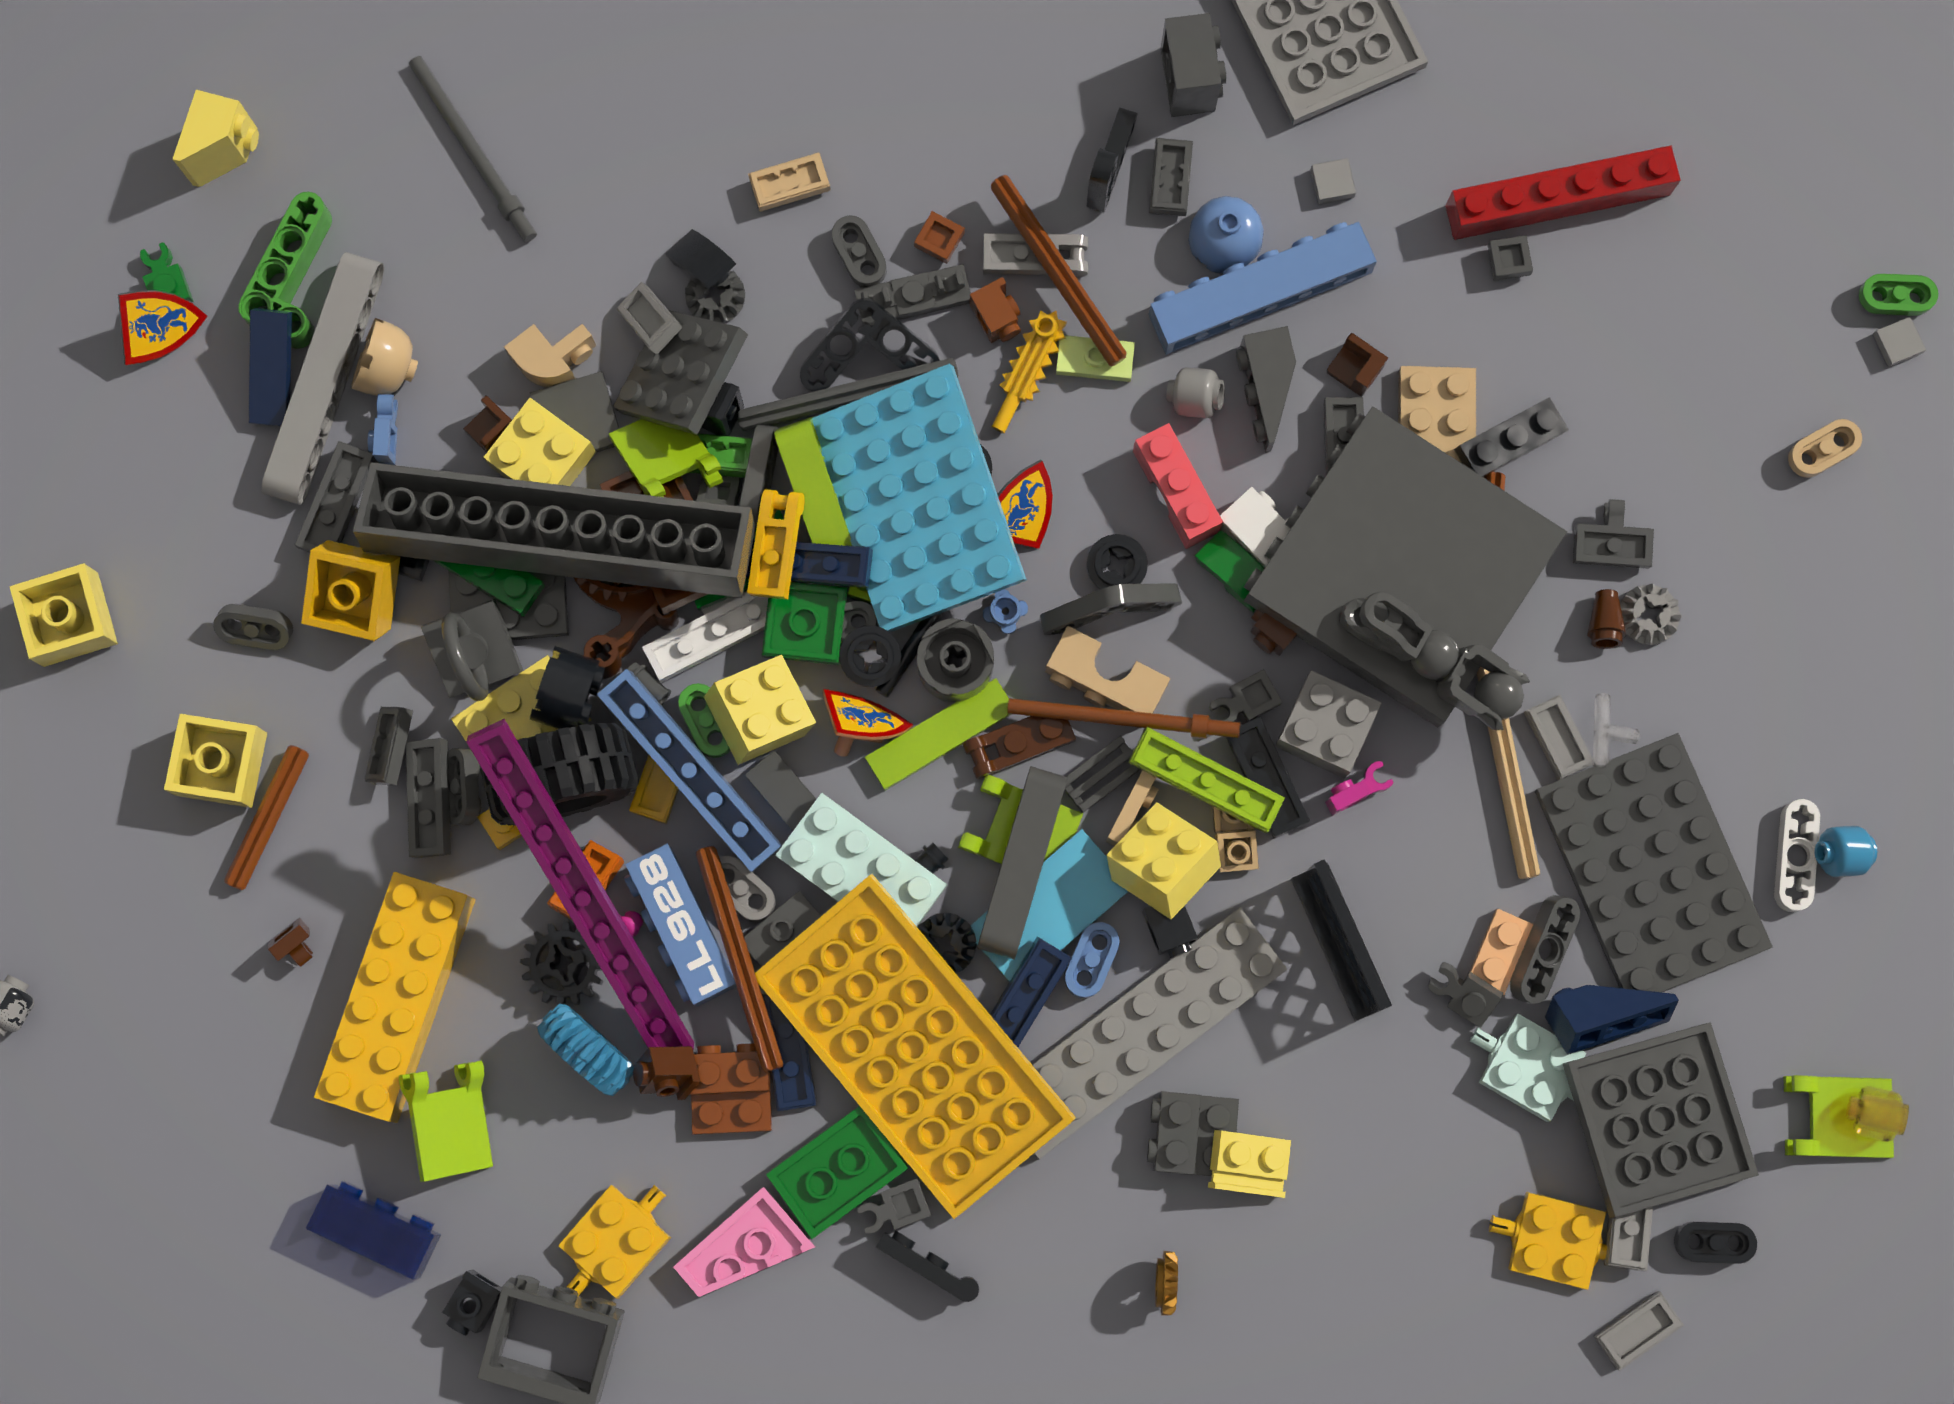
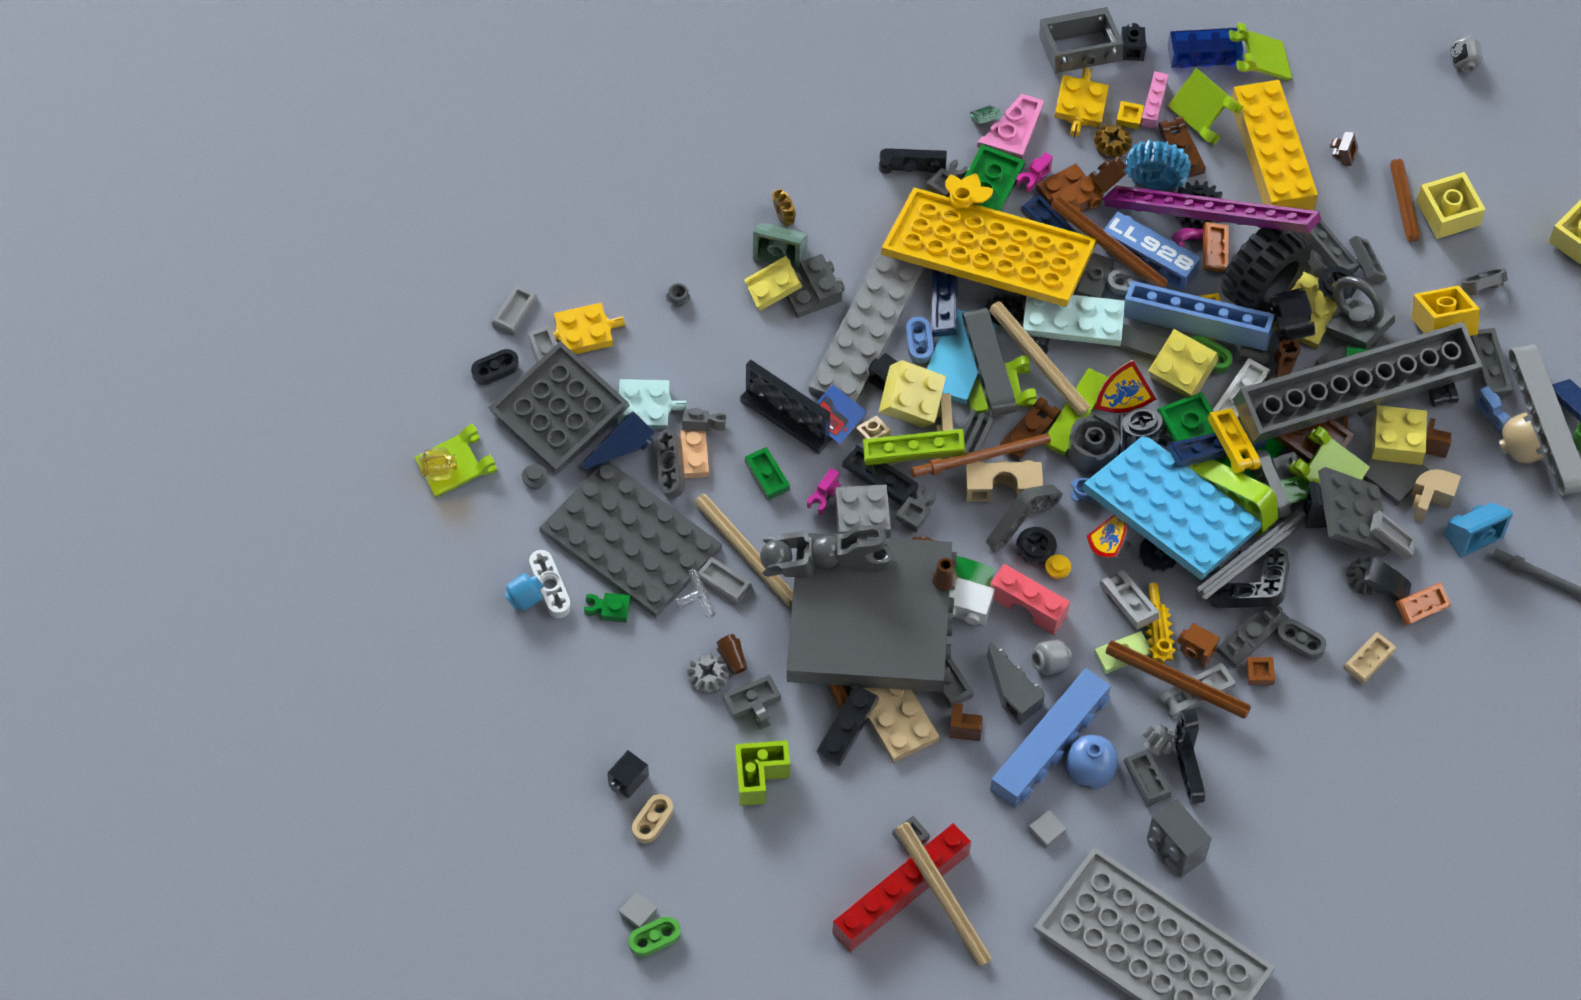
camera: 150 degrees right, 20 degrees down
(297, 1164) = (1263, 53): none -> lime flag
(455, 705) = (1327, 278): none -> black gear
(506, 1183) = (1154, 100): none -> bright pink piece
(519, 1081) = (1183, 141): none -> reddish brown plate
(530, 269) = (1478, 528): none -> dark azure slope
(561, 1174) = (1129, 115): none -> yellow plate
(629, 1154) = (1115, 148): none -> pearl gold gear
(672, 214) = (1423, 603): none -> orange plate
(754, 1151) = (1038, 171): none -> dark pink plate
(772, 1291) = (985, 114): none -> clear green tile
(882, 1164) = (966, 191): none -> yellow plate
(950, 829) = (1039, 358): none -> tan axle
(1047, 413) = (1130, 599): none -> light grey plate
(1106, 518) = (1058, 566): none -> yellow plate
(1128, 210) = (1159, 739): none -> light grey gear
(1204, 1224) = (775, 242): none -> sand green slope
(1277, 901) = (843, 413): none -> blue sticker
(1290, 546) = (944, 575): none -> reddish brown cone
(1401, 1229) = (678, 289): none -> dark grey plate
(1419, 863) = (767, 473): none -> green plate
(1527, 143) = (943, 894): none -> tan axle
(1662, 441) = (757, 763): none -> lime brick
(1728, 777) = (612, 608): none -> green plate
(1741, 1033) = (534, 476): none -> dark grey plate
(1829, 521) = (627, 774): none -> black brick

